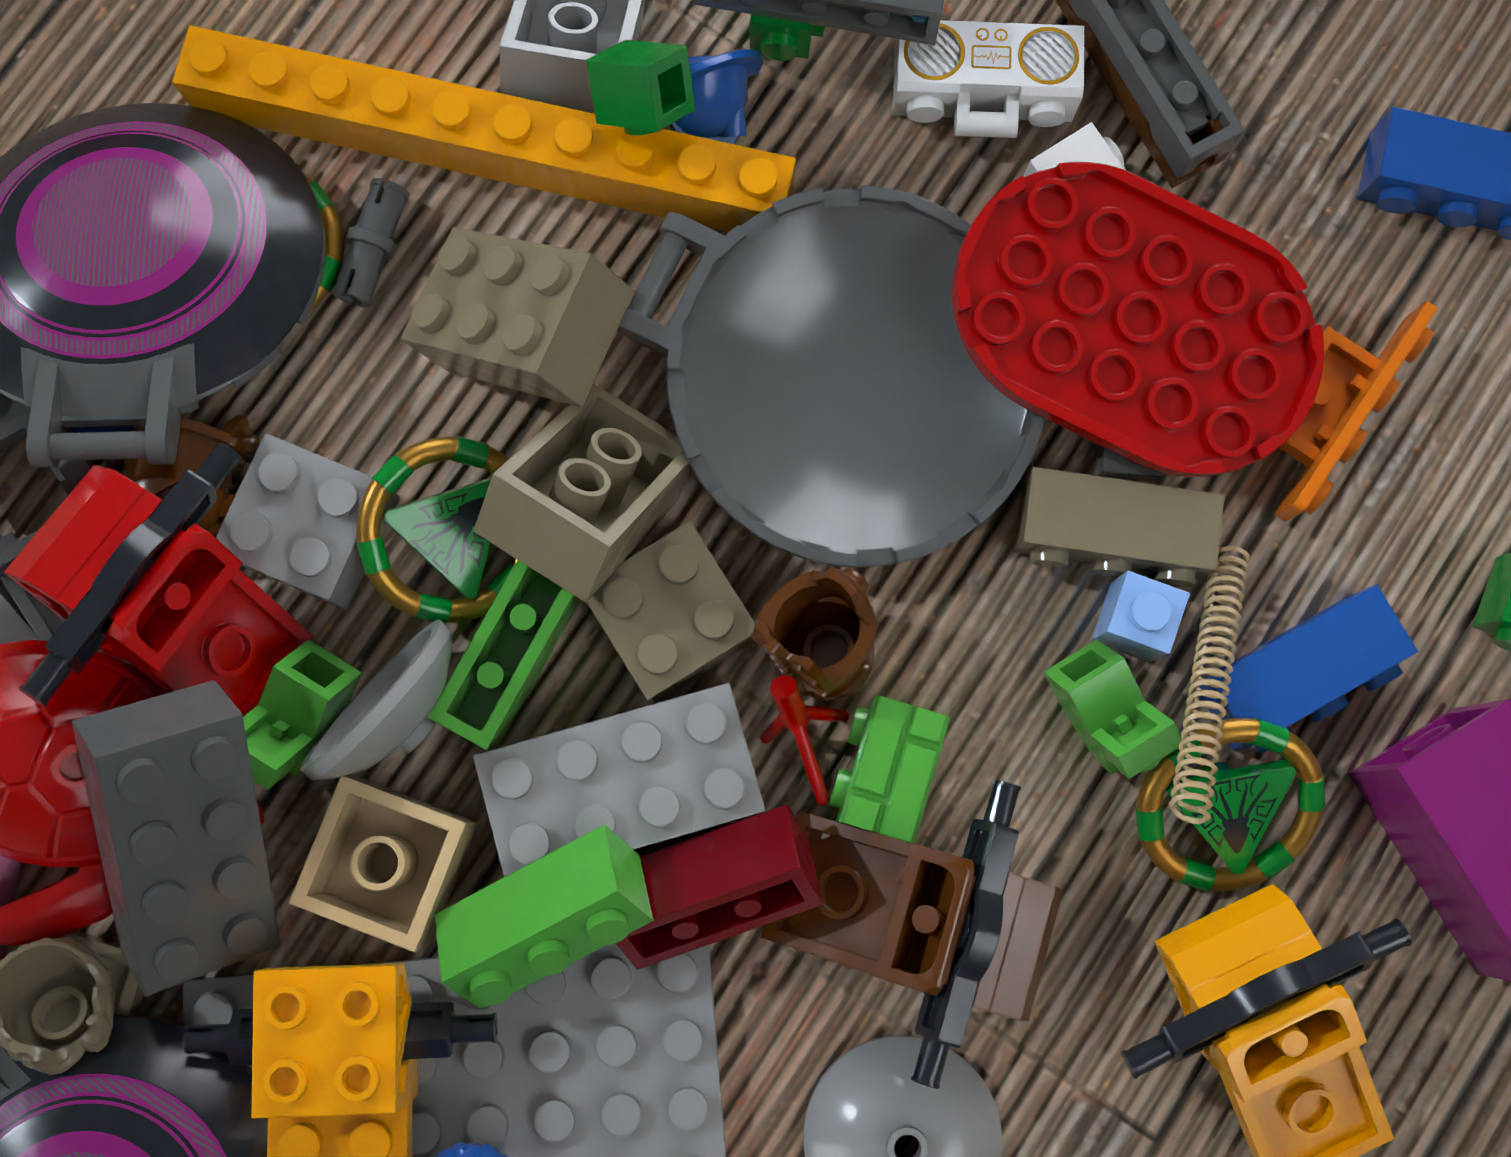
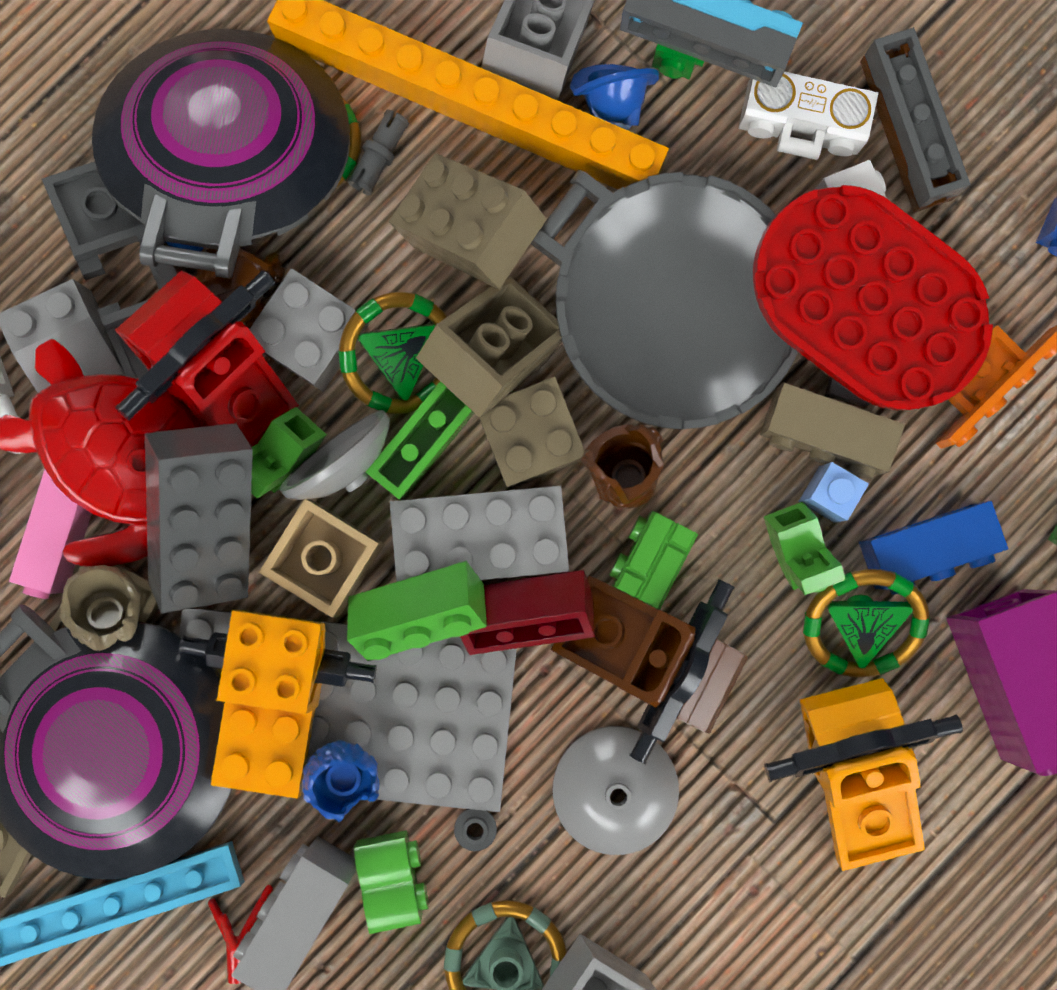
camera: 10 degrees right, 5 degrees up
(641, 85) = (576, 82): green brick -> none
(795, 717) = (599, 515): red plant -> none
(1202, 639) = (866, 527): tan piece -> none

